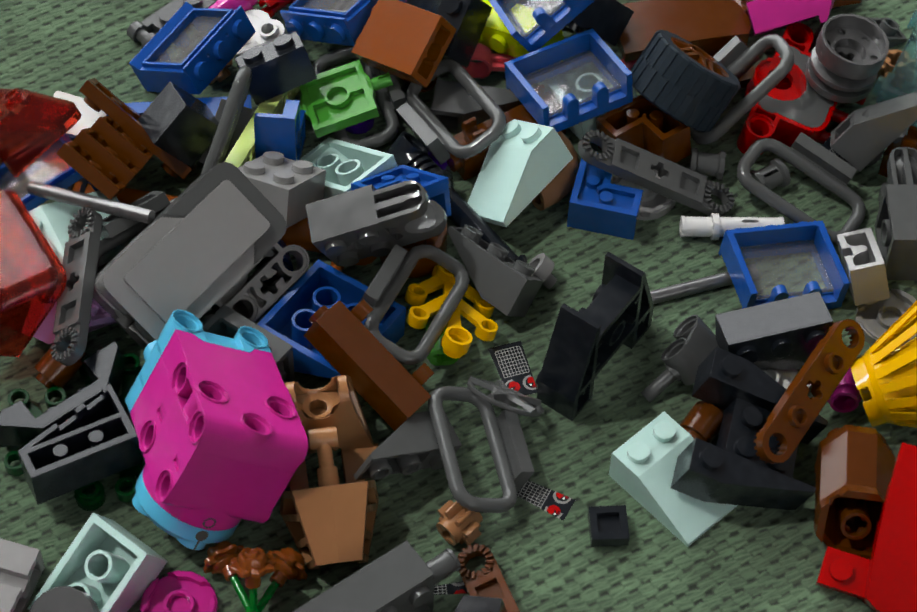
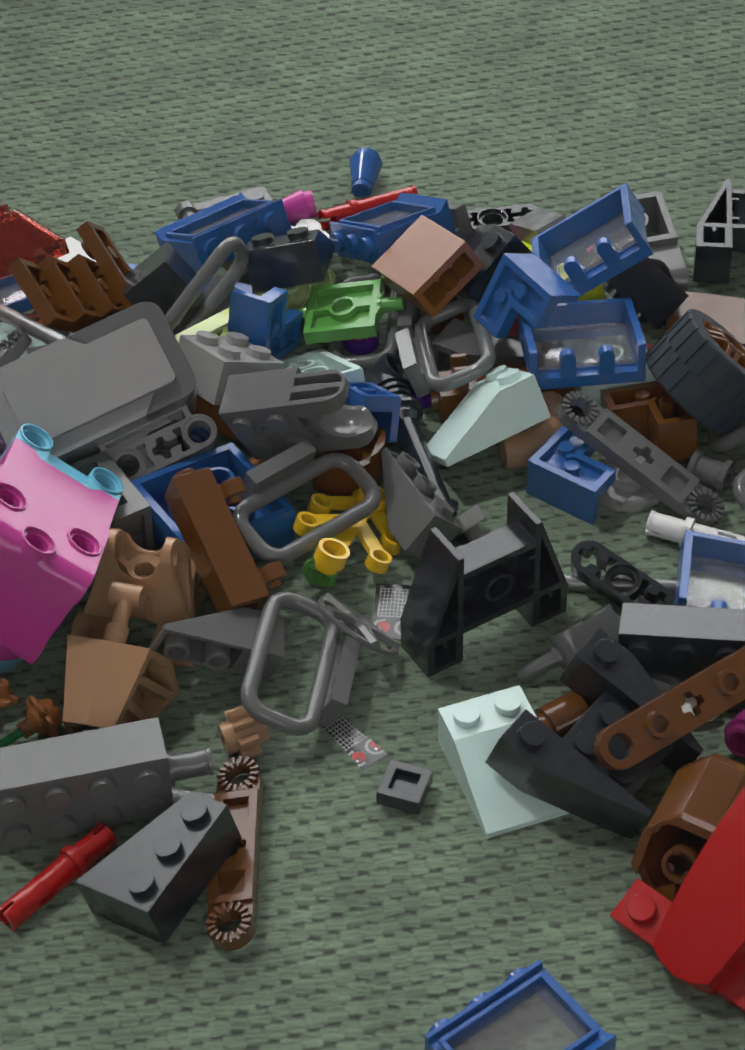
camera: 25 degrees right, 10 degrees down
(512, 46) = (524, 287): none -> blue panel
(717, 288) = (591, 576): none -> black beam

